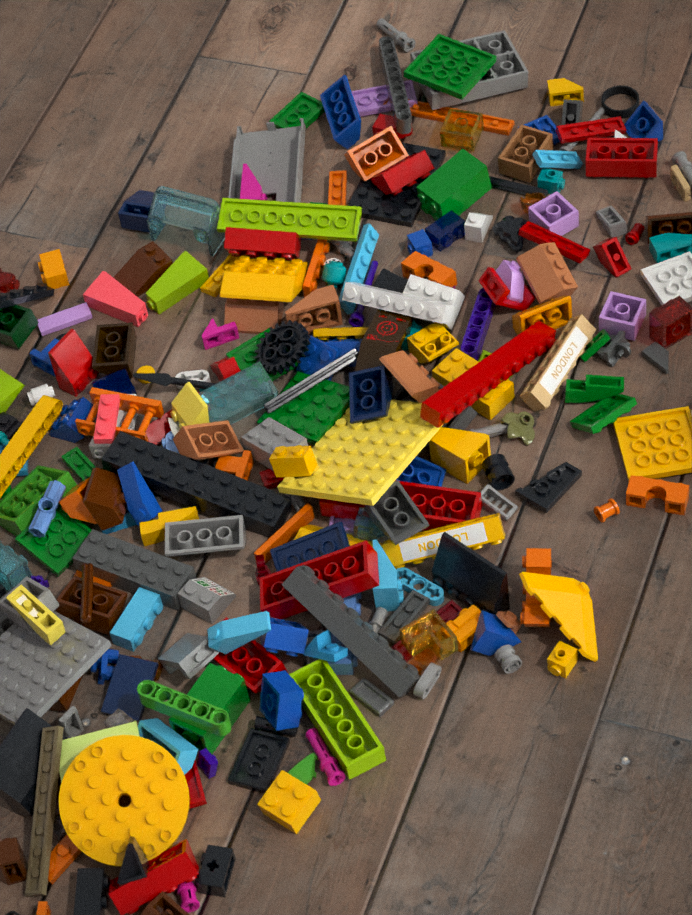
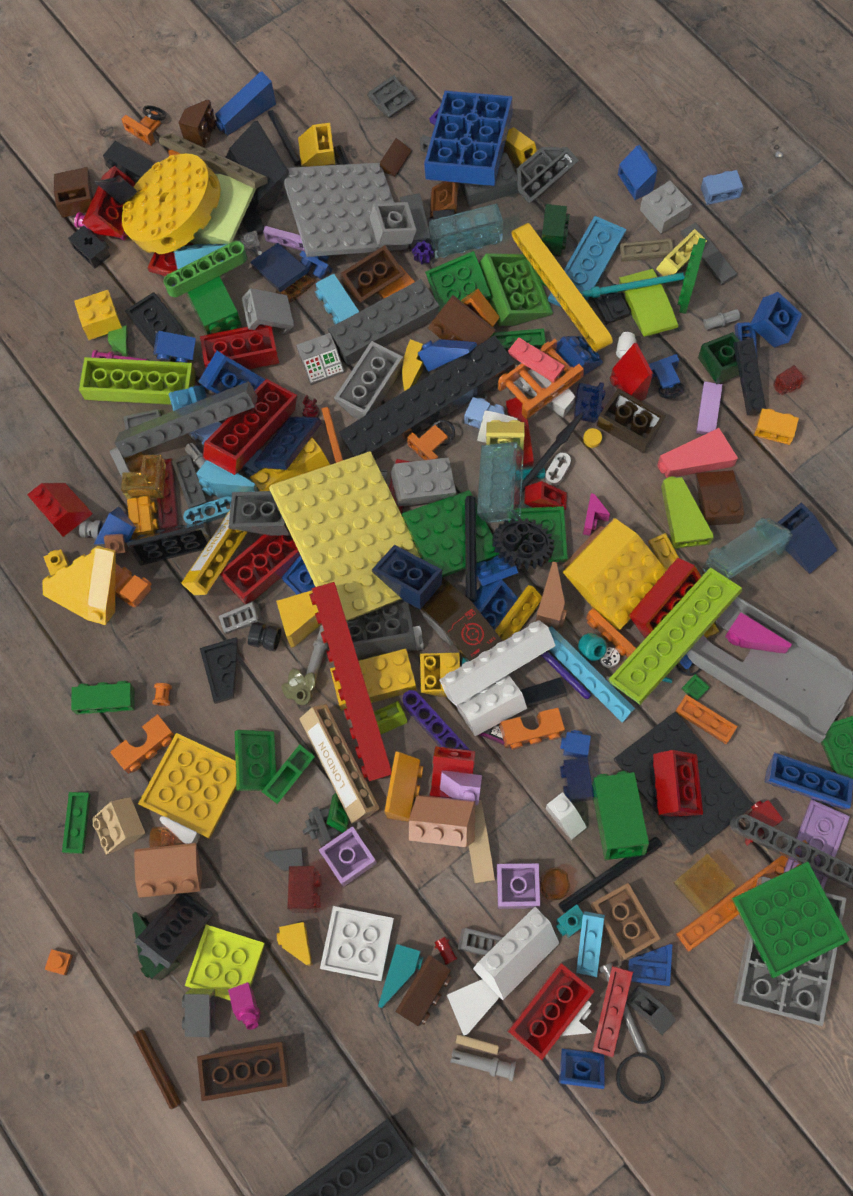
camera: 120 degrees right, 20 degrees up
(36, 614) = (363, 212): light yellow slope -> none
(44, 517) = (474, 273): medium blue piece -> none
(71, 723) = (277, 214): light grey slope -> none
(86, 593) = (374, 268): reddish brown axle -> none
(92, 701) = (283, 238): none -> lavender tile
(207, 440) = (460, 430): nougat slope -> none
(238, 631) = (242, 337): medium azure slope -> none
(293, 461) = (375, 467): yellow brick -> none
(376, 154) = (721, 775): orange slope -> none
(410, 375) = (397, 614): nougat slope -> none
(508, 232) = (531, 838): black rock -> none
(508, 689) = (59, 506): none -> red slope
(563, 89) = (695, 1027): yellow slope -> none
(565, 246) = (480, 859): red plate -> none
(601, 192) = (517, 953): none -> white slope
(612, 256) = (431, 905): red slope -> none
(646, 546) = (103, 698): none -> green brick
(653, 198) = (472, 1004): none -> white slope

